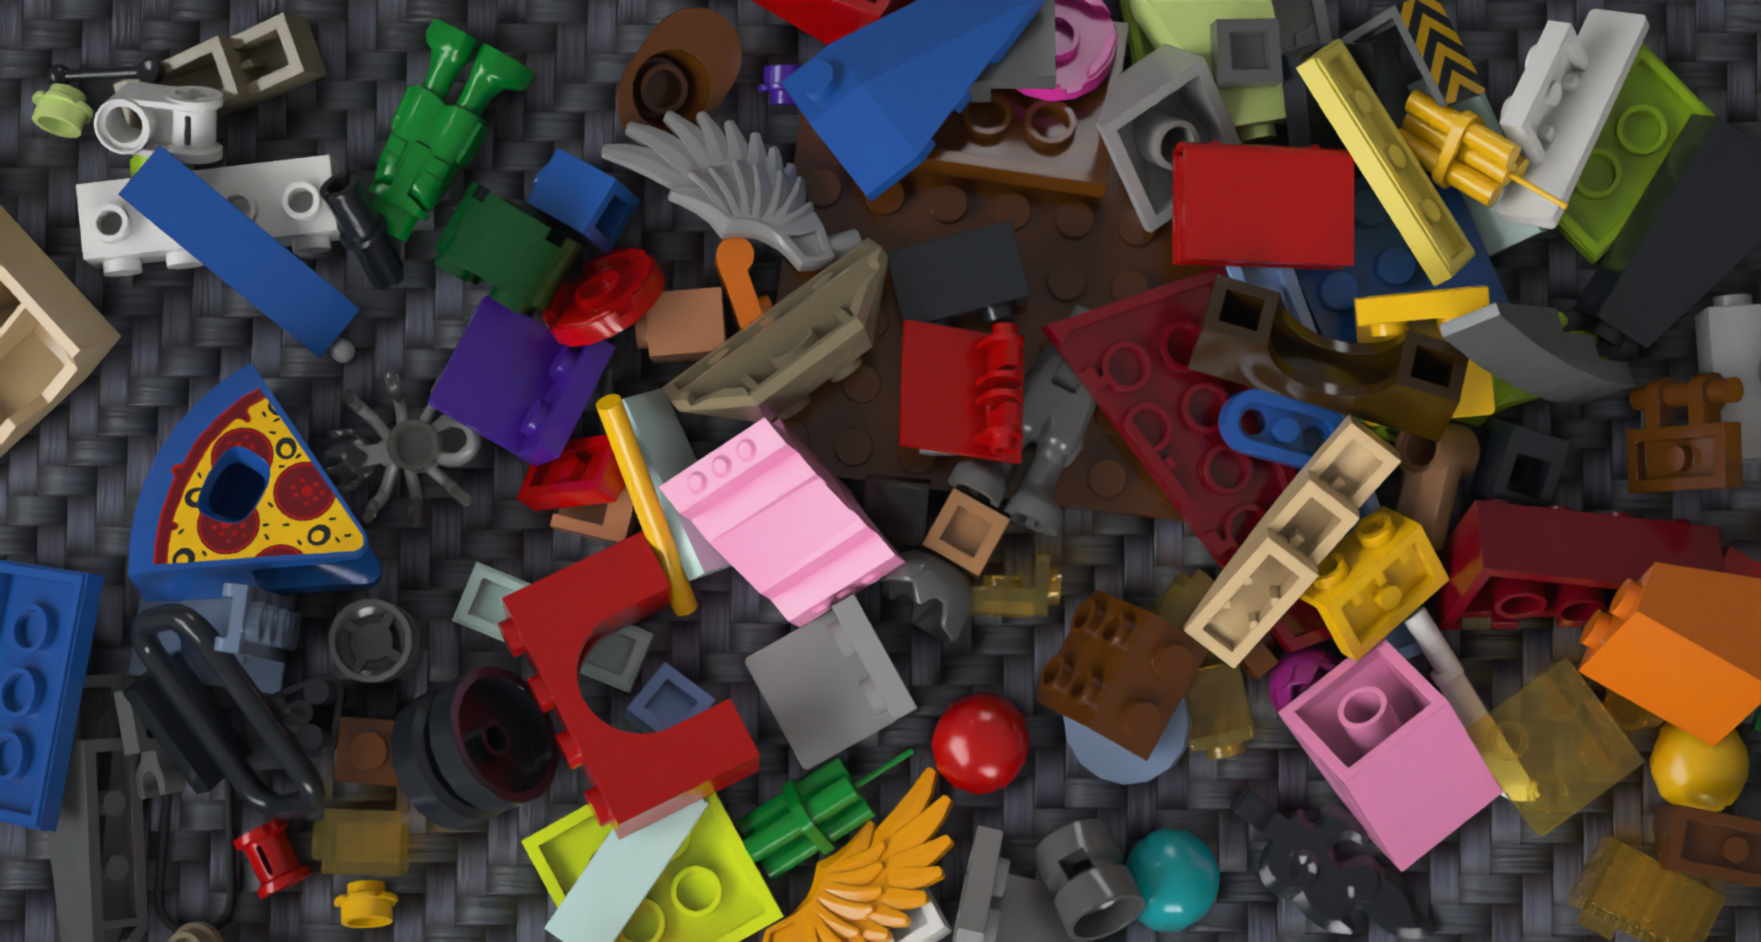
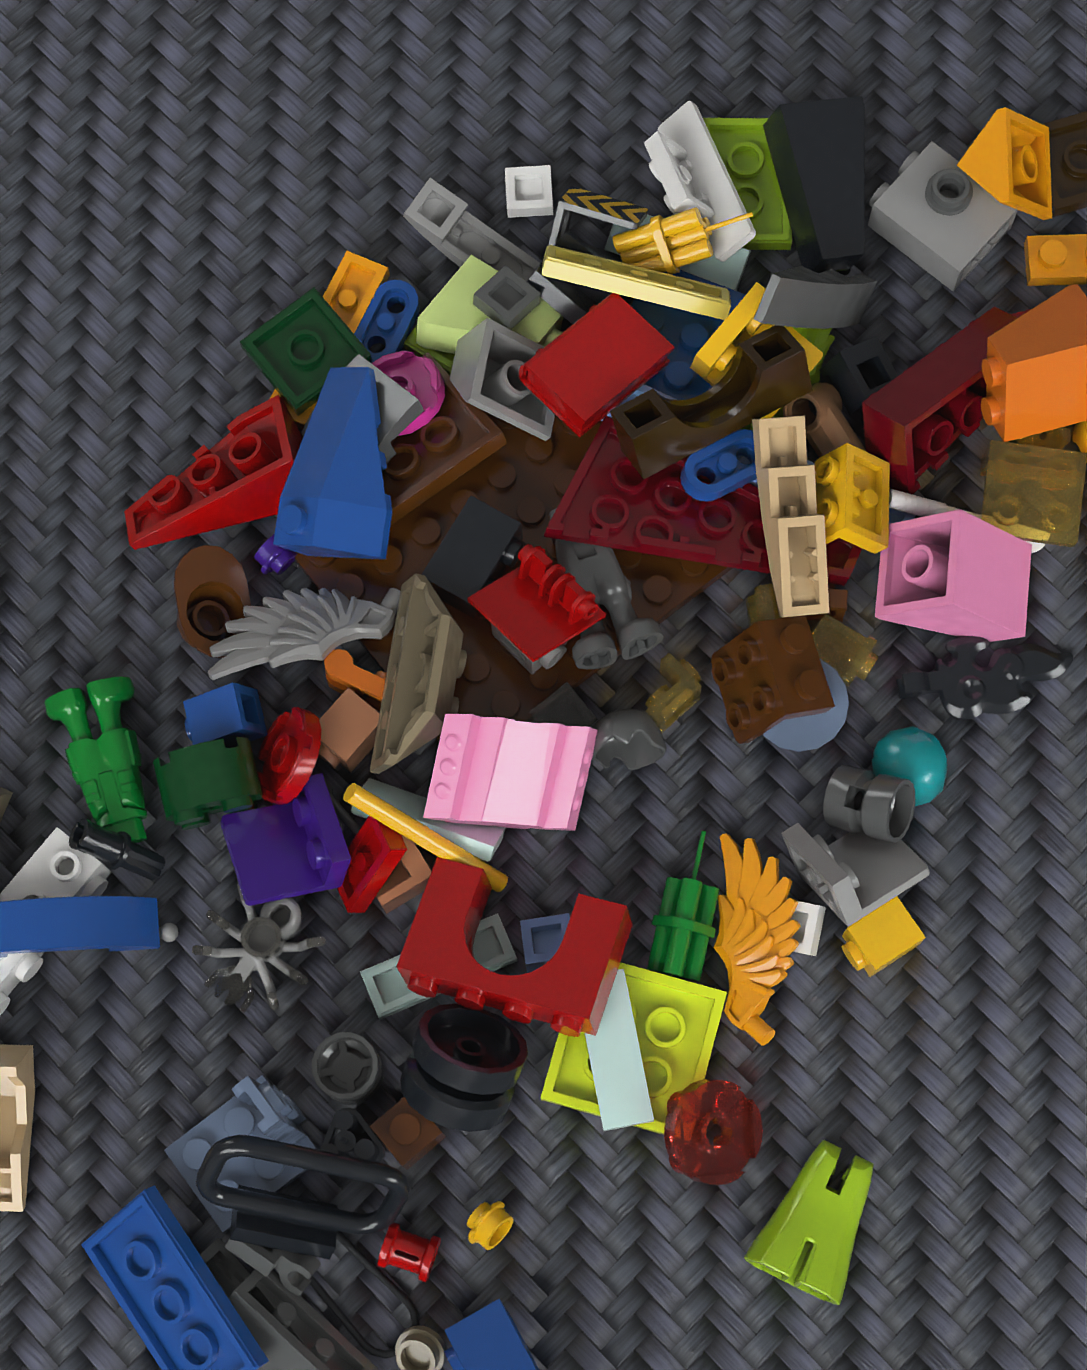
camera: 45 degrees left, 10 degrees down
(244, 506) = (186, 1052): piece -> none
(362, 842) = (451, 1190): clear yellow brick -> none
(830, 683) = (623, 839): light grey bracket -> none
(966, 532) = (613, 685): medium nougat panel -> none
(981, 743) = (735, 795): red hair -> none
(1297, 673) = (863, 590): magenta plate -> none
(1685, 456) = (941, 286): reddish brown plate -> none

